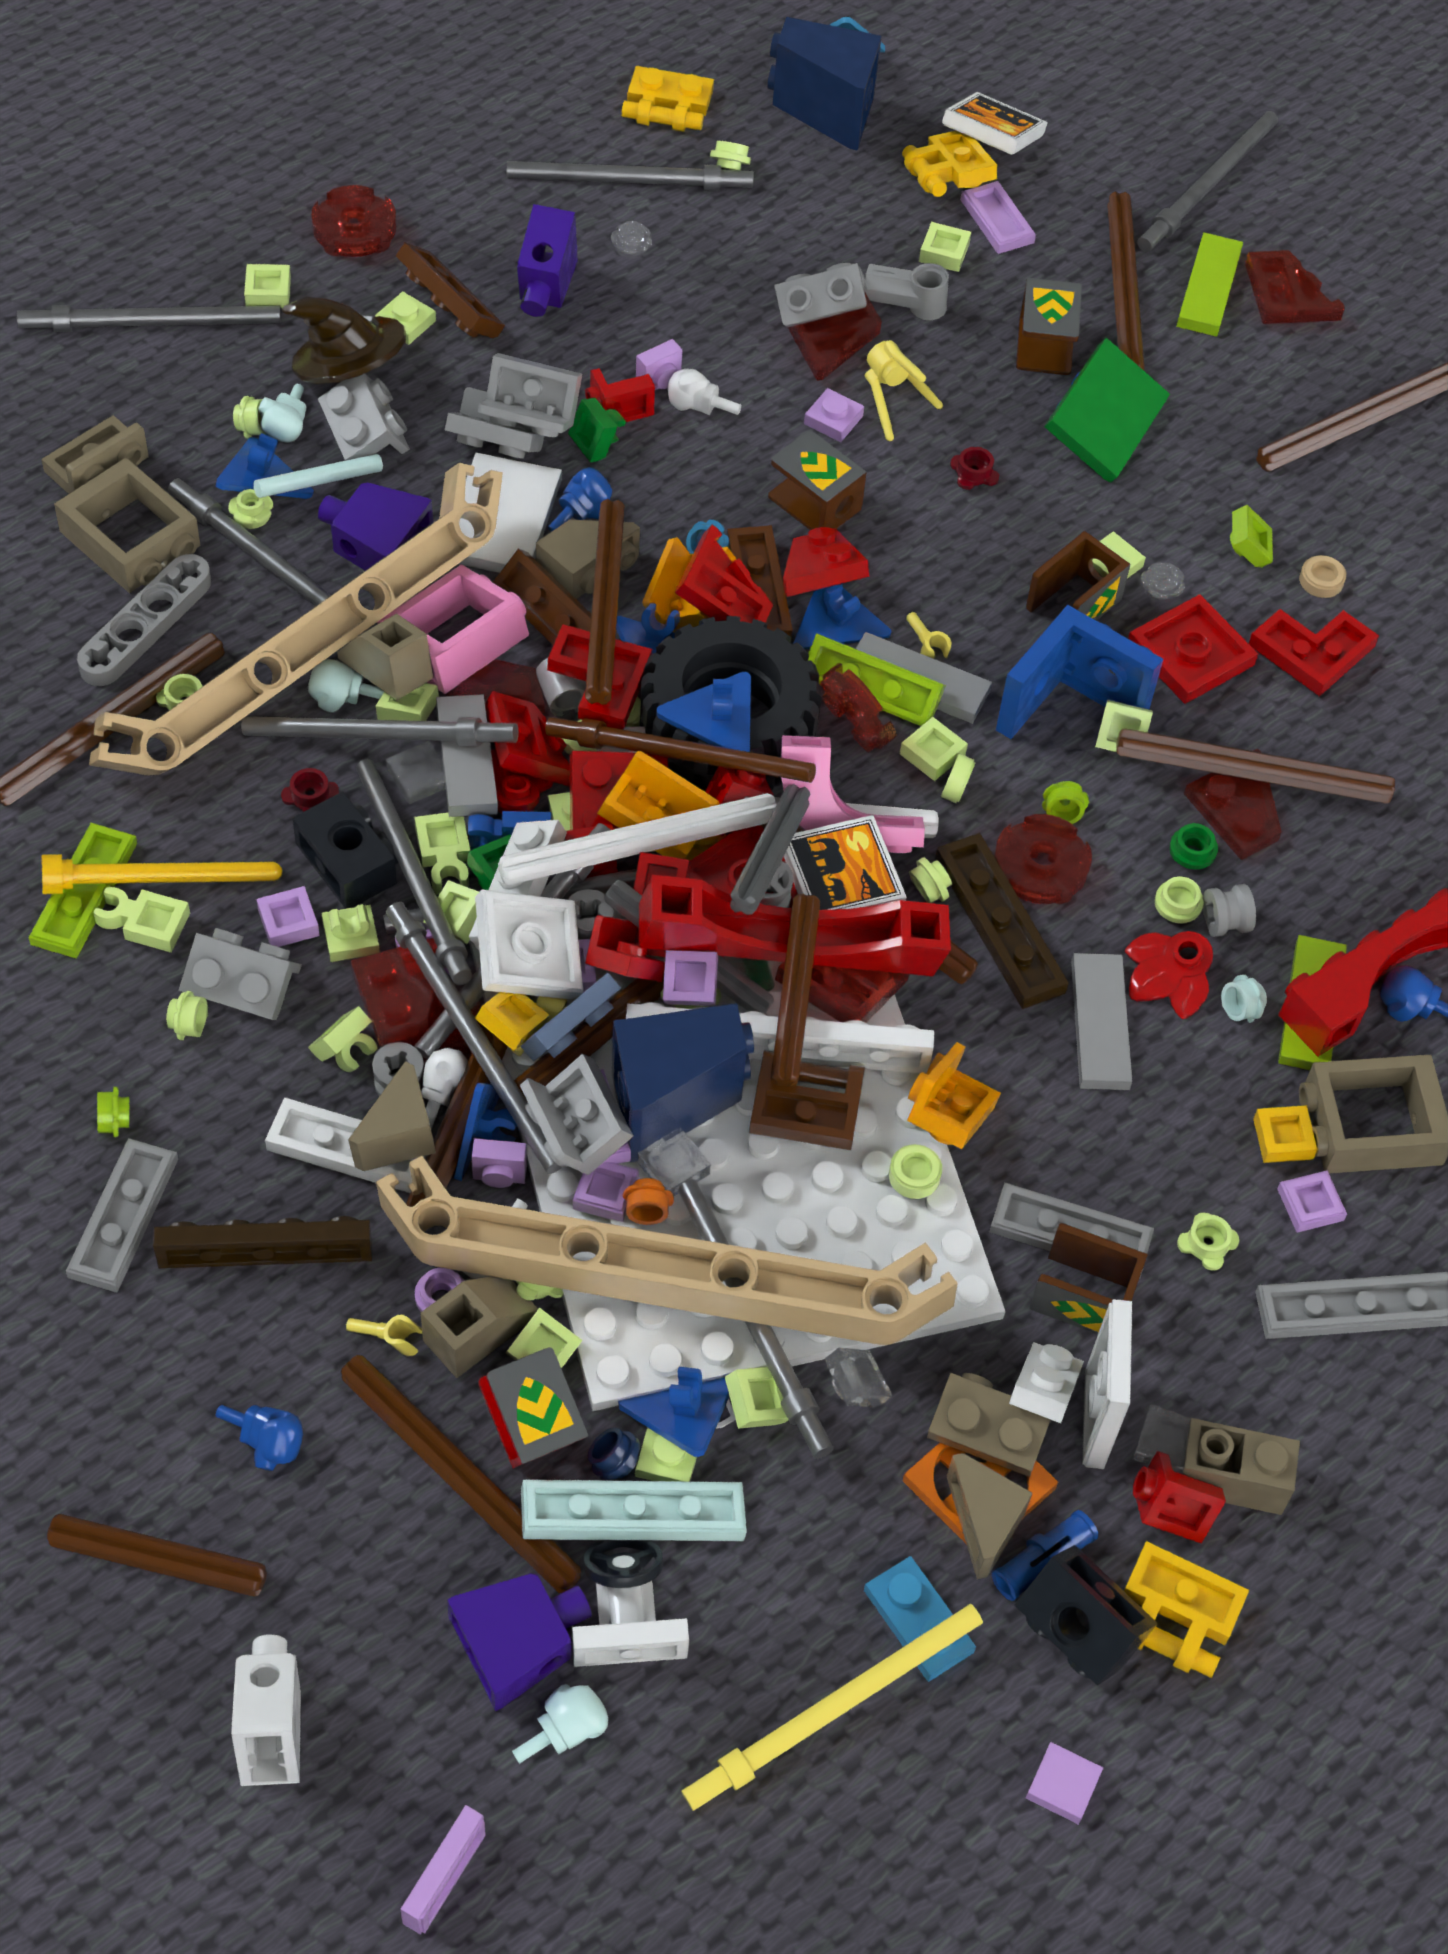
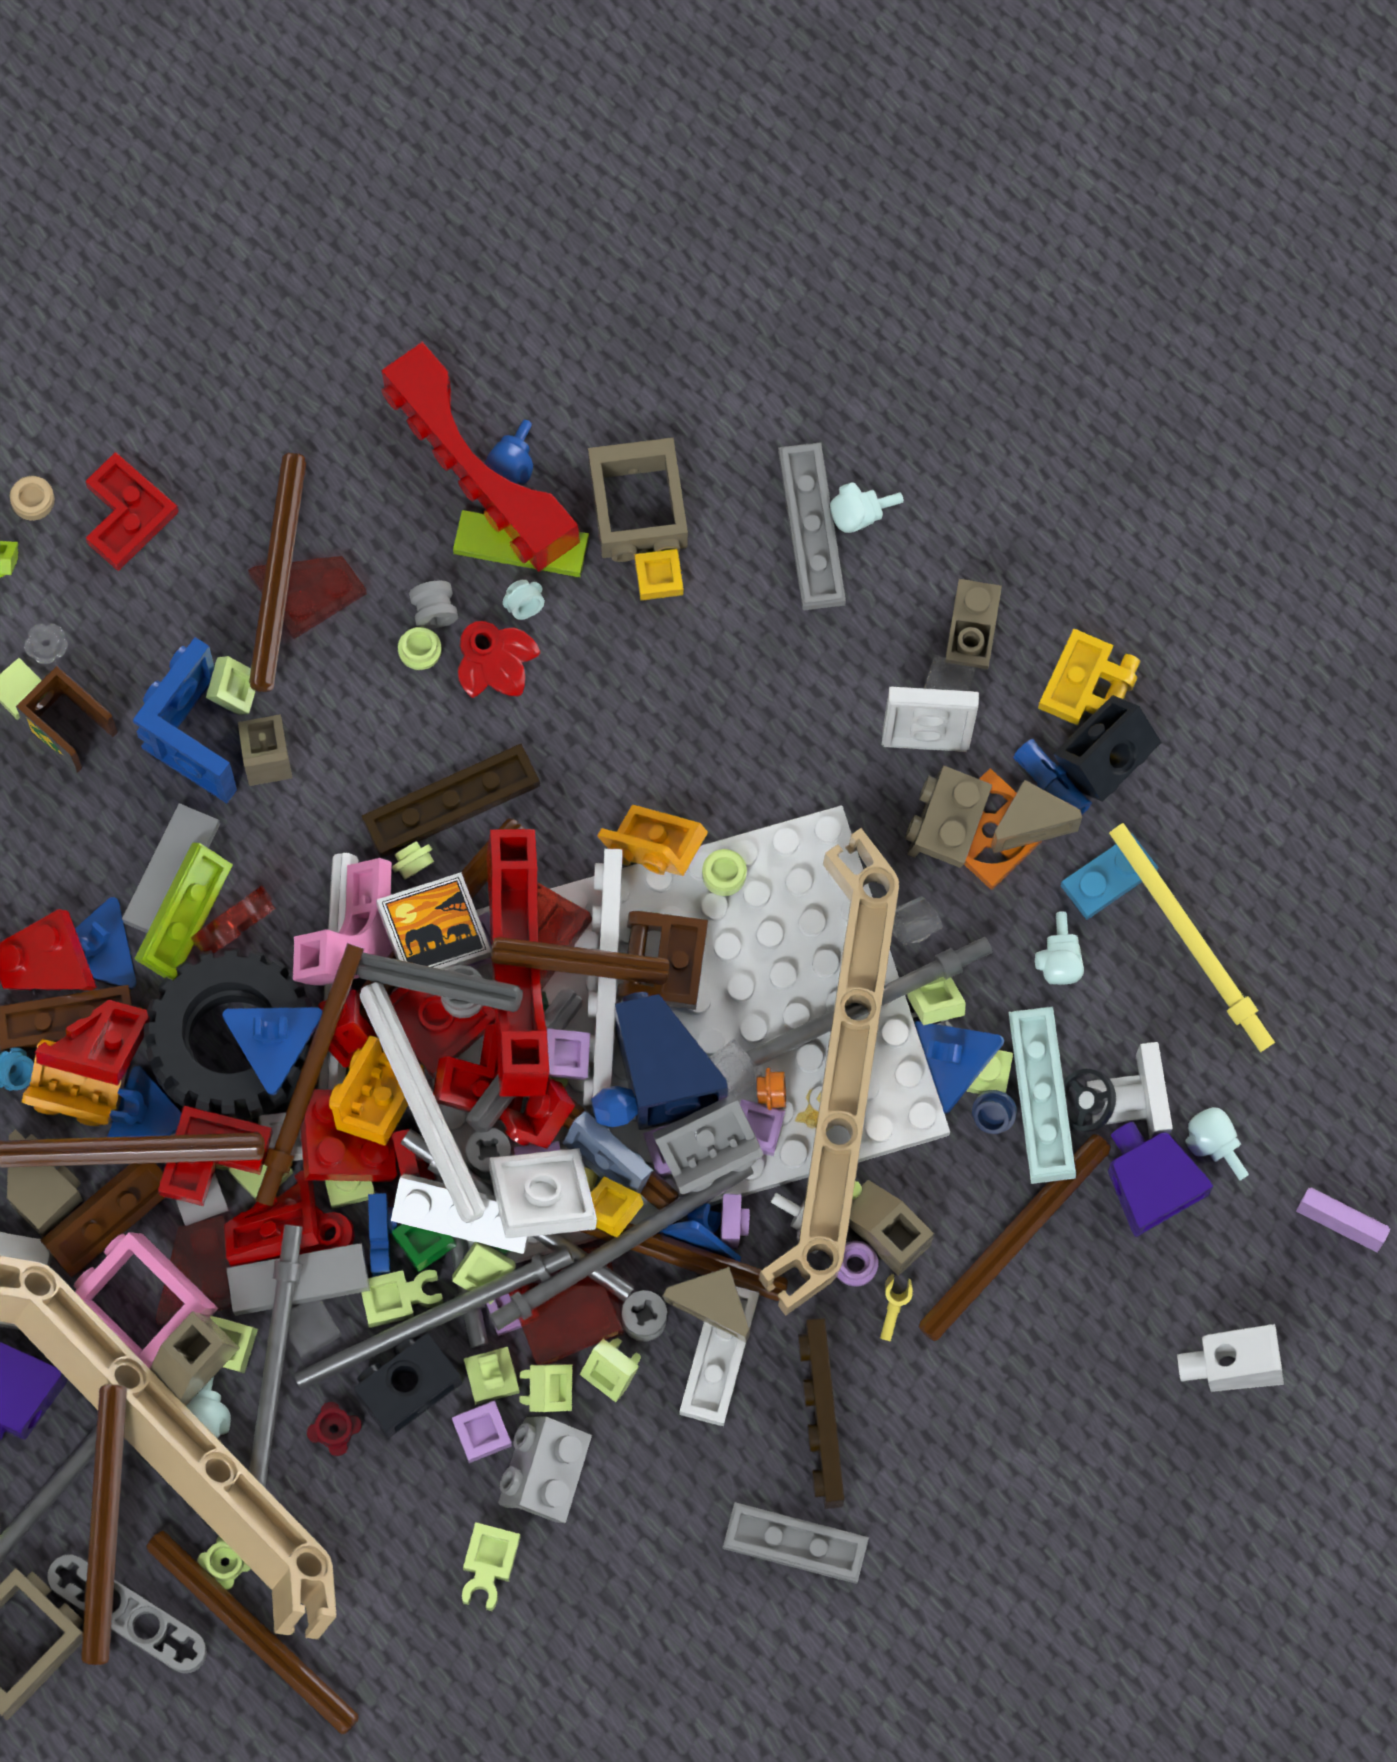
camera: 90 degrees left, 15 degrees up
(62, 873) = (453, 1644): yellow piece -> none
(70, 915) = (455, 1627): lime tile -> none
(112, 1112) = (697, 1564): lime plate -> none
(157, 1555) = (1105, 1471): reddish brown axle -> none
(187, 1015) = (592, 1511): yellowish green plate -> none
(226, 577) = (104, 1524): none -> reddish brown axle
(270, 1431) = (997, 1388): blue piece -> none
(325, 976) = (549, 1387): none -> yellowish green tile
(441, 1078) = (648, 1274): white piece -> none
(532, 1407) = (970, 1174): piece -> none
(541, 1333) = (903, 1173): yellowish green plate -> none
(618, 1005) = (614, 1106): none -> blue tile
(808, 1550) = (1062, 958): none -> light aqua piece
(929, 639) = (123, 862): light yellow hand -> none
(933, 748) = (261, 856): yellowish green plate -> none
(958, 778) = (296, 834): yellowish green tile -> none
(1035, 1219) = (758, 752): light grey tile -> none
(1047, 1381) = (912, 771): white plate -> none
(1051, 752) = (264, 750): none -> dark tan slope
(1064, 848) = (368, 744): clear red plate -> none
(1064, 1783) = (1230, 772): lavender tile -> none
(1070, 809) = (316, 741): lime plate -> none
(1093, 1256) = (809, 701): reddish brown piece -> none
(1101, 1021) = (549, 720): light grey tile -> none
(1176, 1500) = (1006, 679): red bracket -> none
(1196, 648) = (131, 620): red plate -> none
(1198, 836) = (360, 620): green plate -> none
(1210, 1227) = (762, 630): yellowish green plate -> none
(1312, 1201) = (718, 559): lavender tile -> none
(1390, 1353) = (859, 509): none -> light aqua piece

